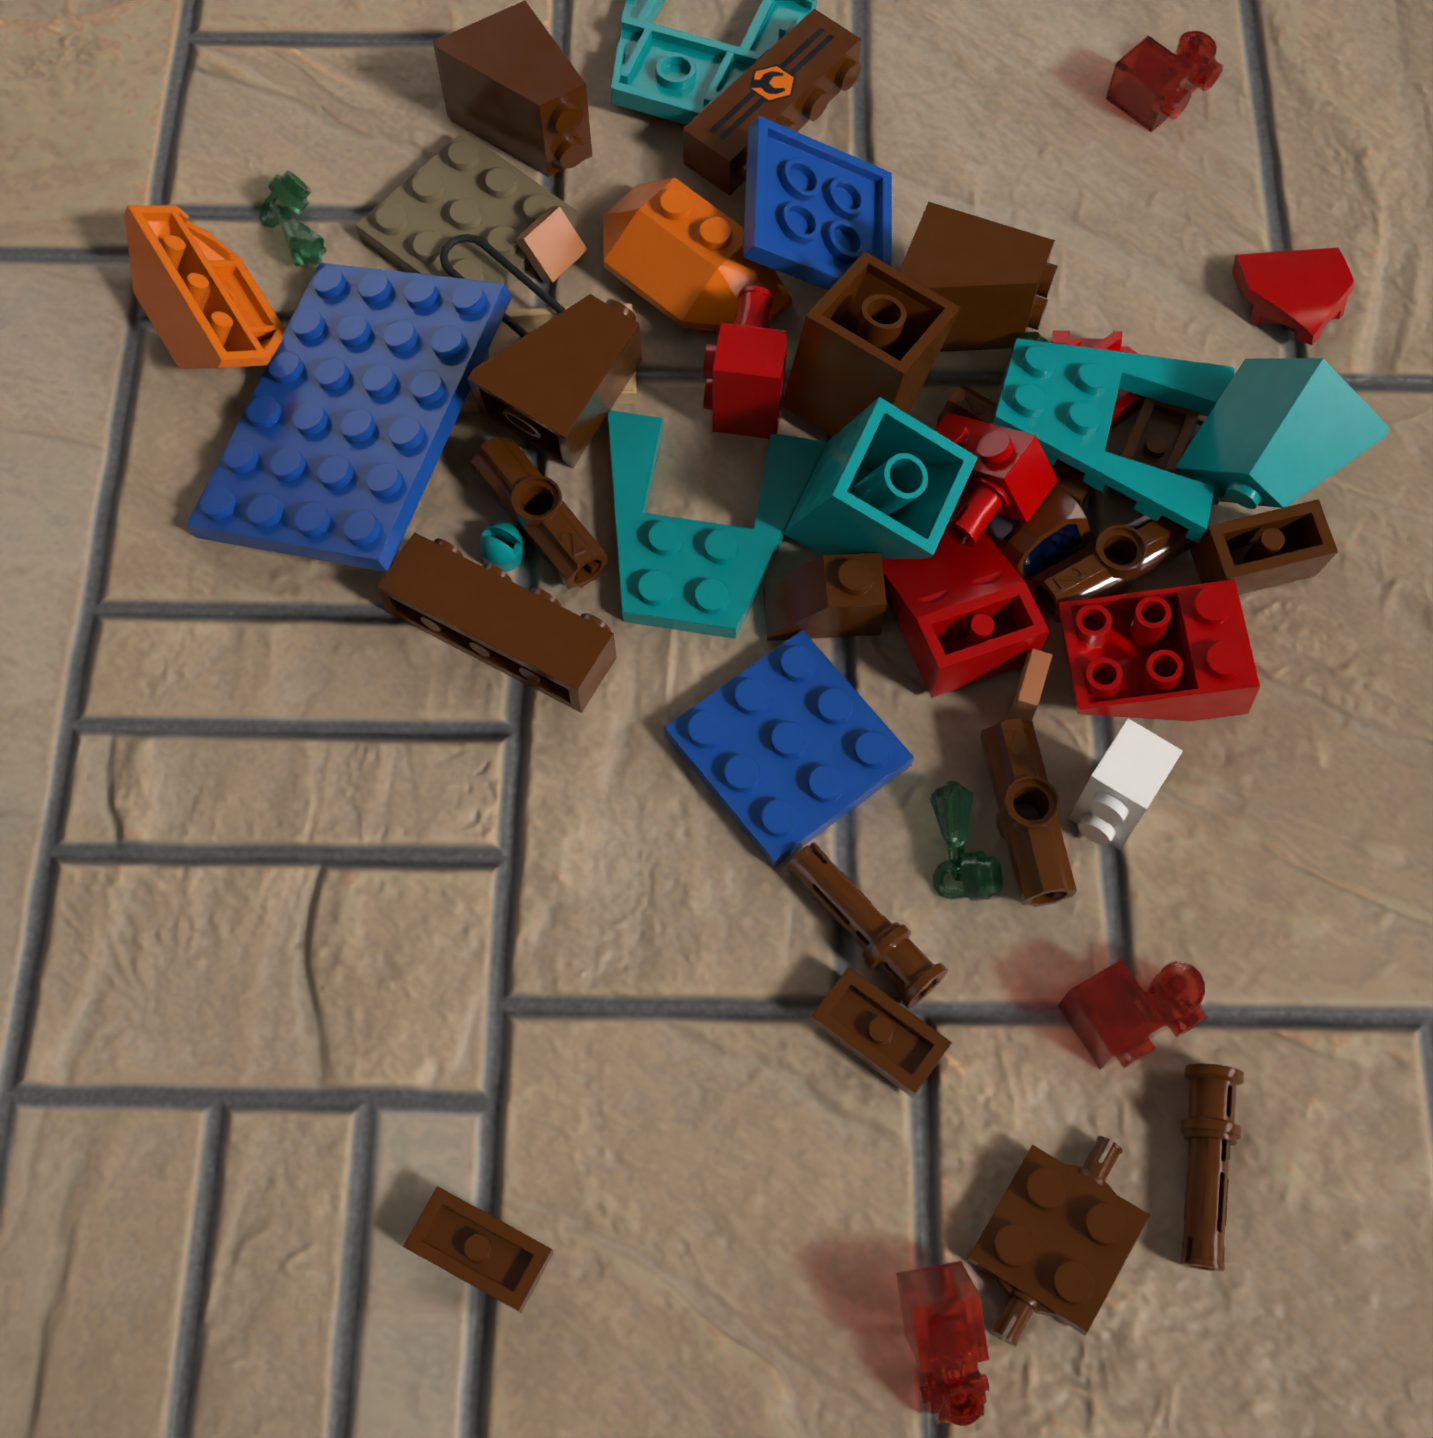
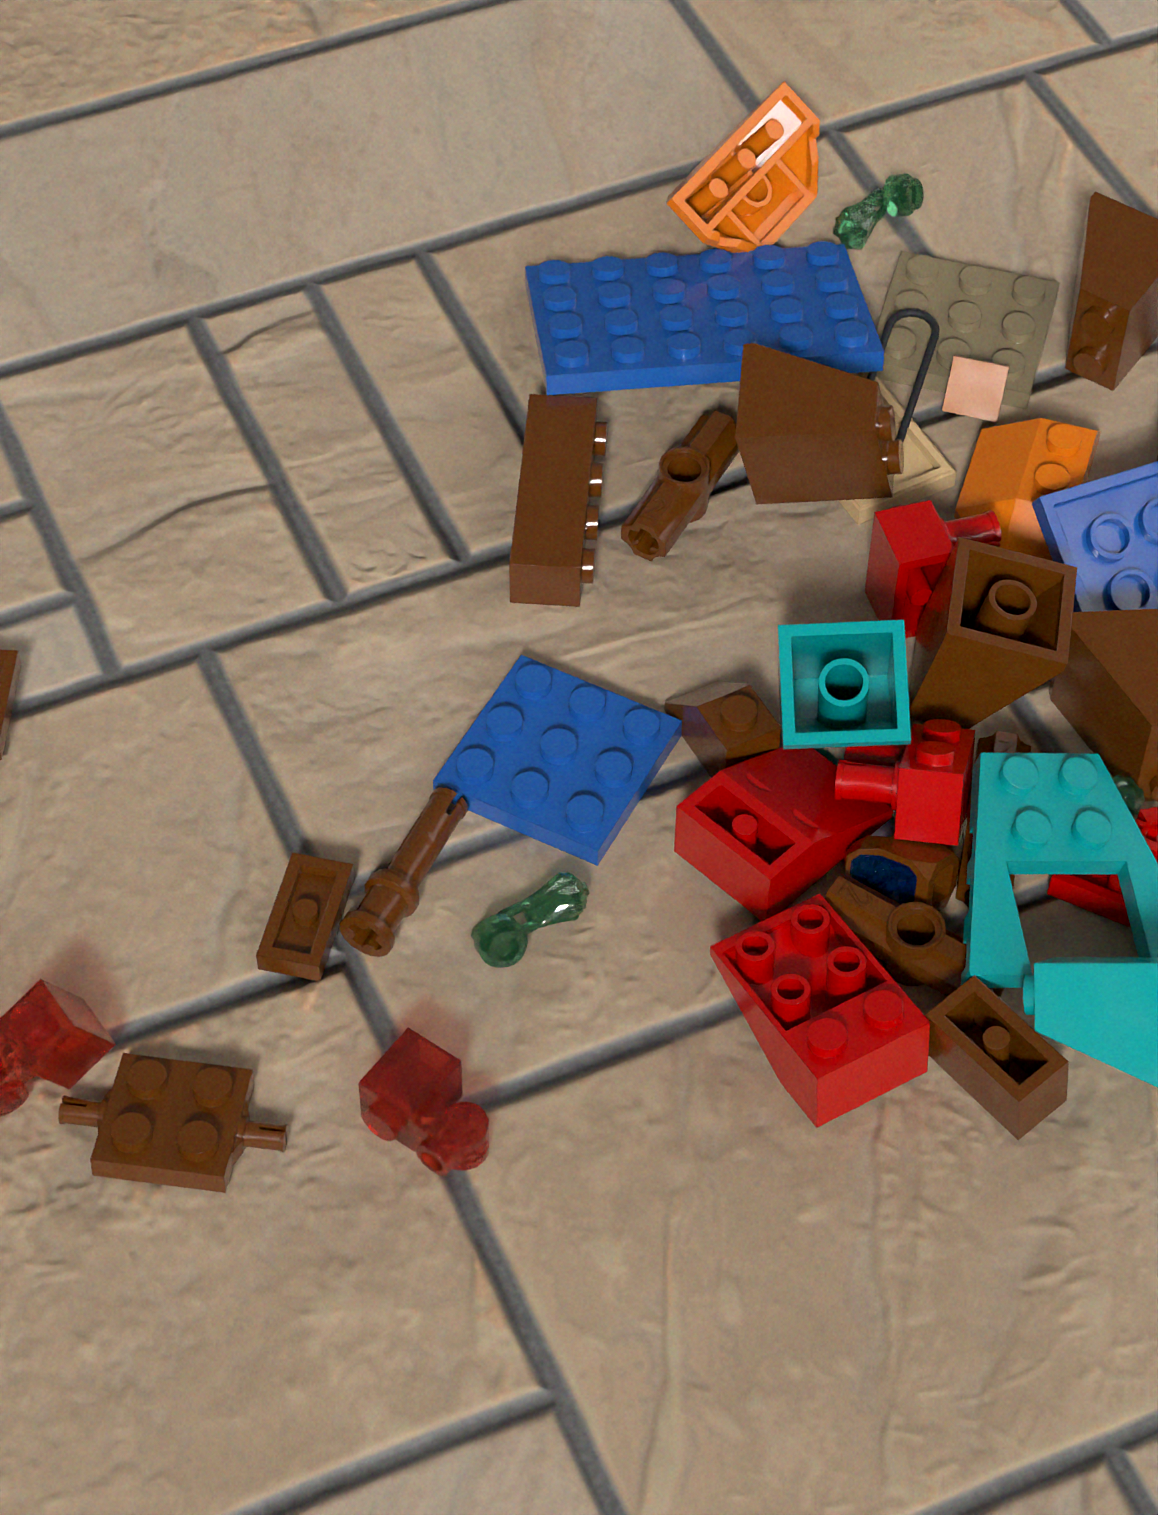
camera: 65 degrees right, 15 degrees down
(498, 552) = (629, 468): teal hinge -> none
(693, 570) = (695, 614): teal wing -> none
(1030, 685) = (720, 914): nougat tile -> none
(1033, 845) = (561, 972): reddish brown piece -> none
(1123, 785) = (643, 1005): white brick -> none
(1160, 435) = (1076, 933): reddish brown plate -> none
(1210, 1137) = (216, 1241): reddish brown pin -> none

